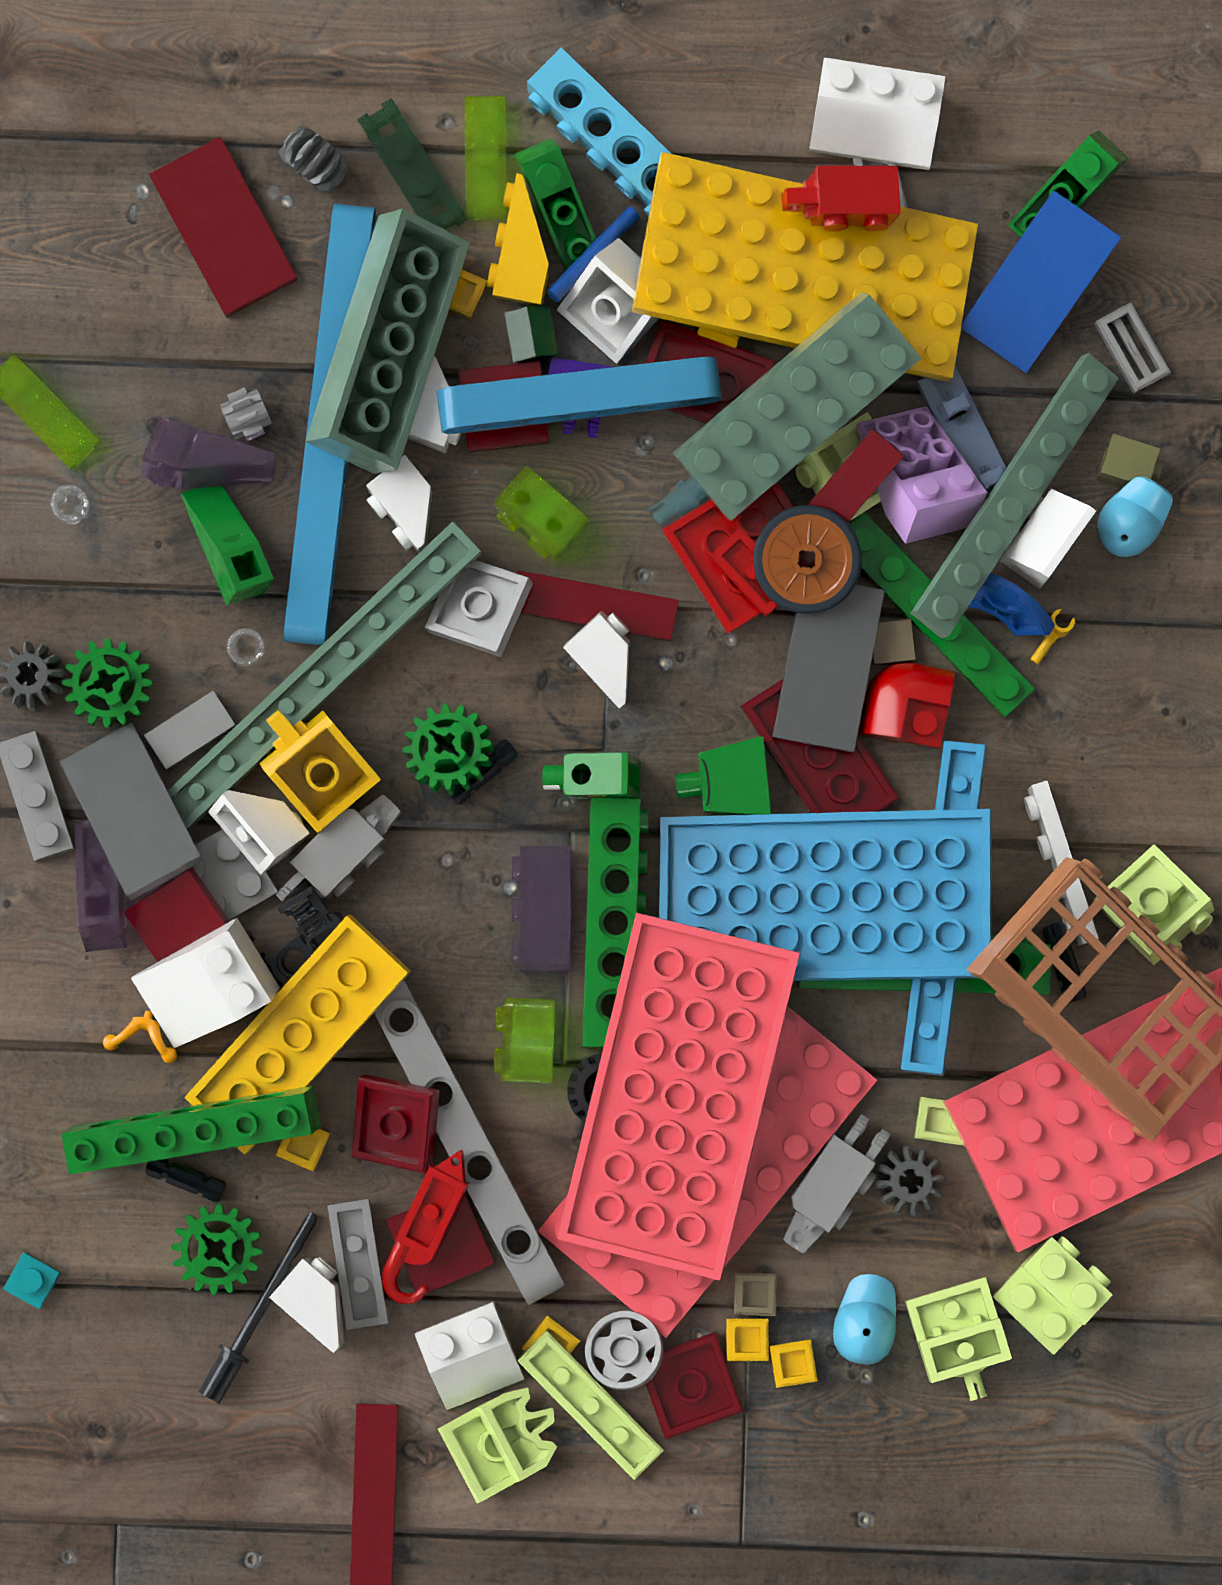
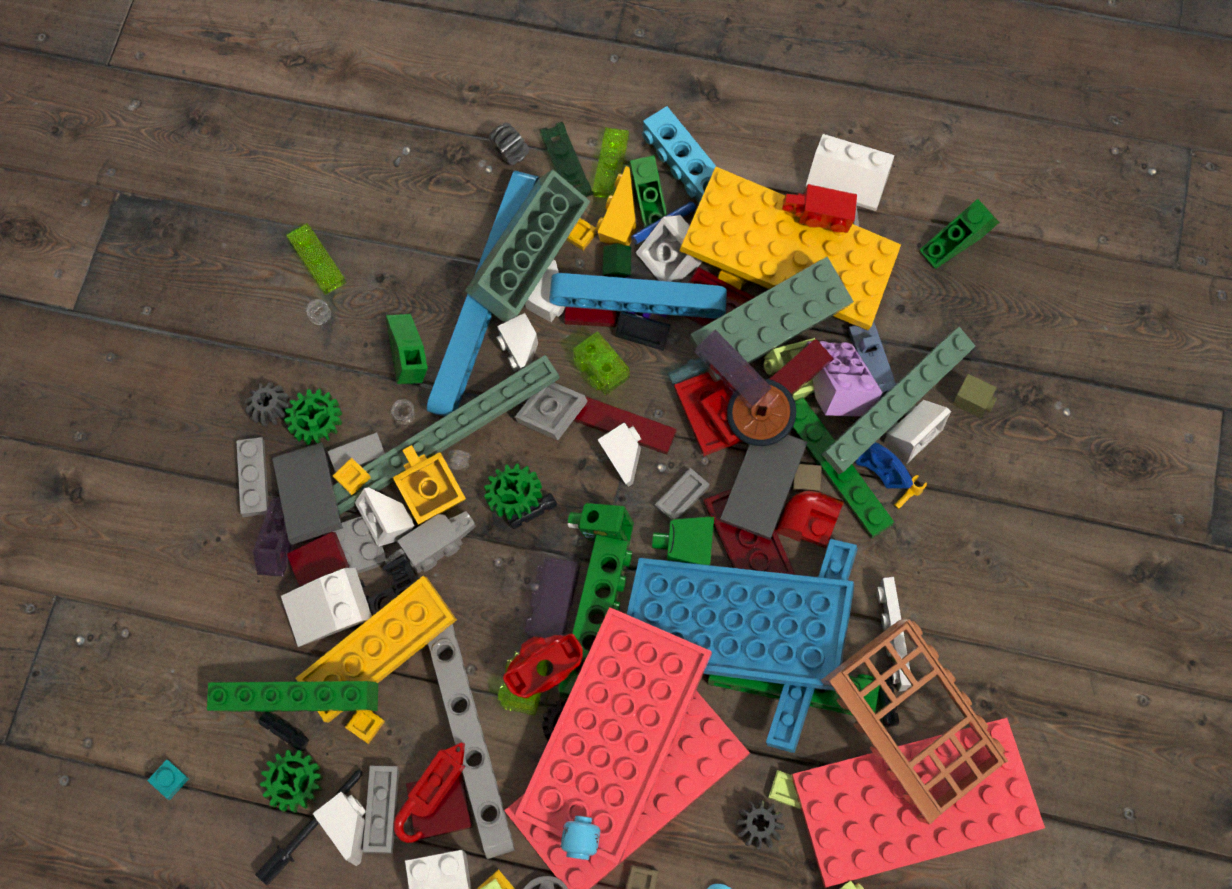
camera: 15 degrees right, 15 degrees down
(144, 1023) = (284, 628): light orange piece -> none
(194, 772) = (351, 476): none -> yellow tile
(199, 459) = (402, 297): clear purple slope -> none
(223, 227) = (448, 176): dark red tile -> none
(245, 414) = (435, 277): light grey gear -> none
(351, 712) = (458, 459): none -> clear bush
(395, 1123) = (425, 719): dark red tile -> none
(524, 1031) = (522, 674): none -> red piece
(595, 446) = (642, 330): none -> black tile
(660, 1256) = (580, 838): none -> medium azure head
(706, 704) = (682, 495): none -> light grey tile
(753, 508) = (732, 369): none -> clear purple brick
(830, 1185) = (705, 817): light grey hinge -> none
(1040, 281) = (934, 280): blue tile -> none
(1119, 357) = (985, 352): light grey tile -> none
(1136, 512) = (978, 422): medium azure cap -> none
(1164, 897) = (967, 667): yellowish green plate -> none

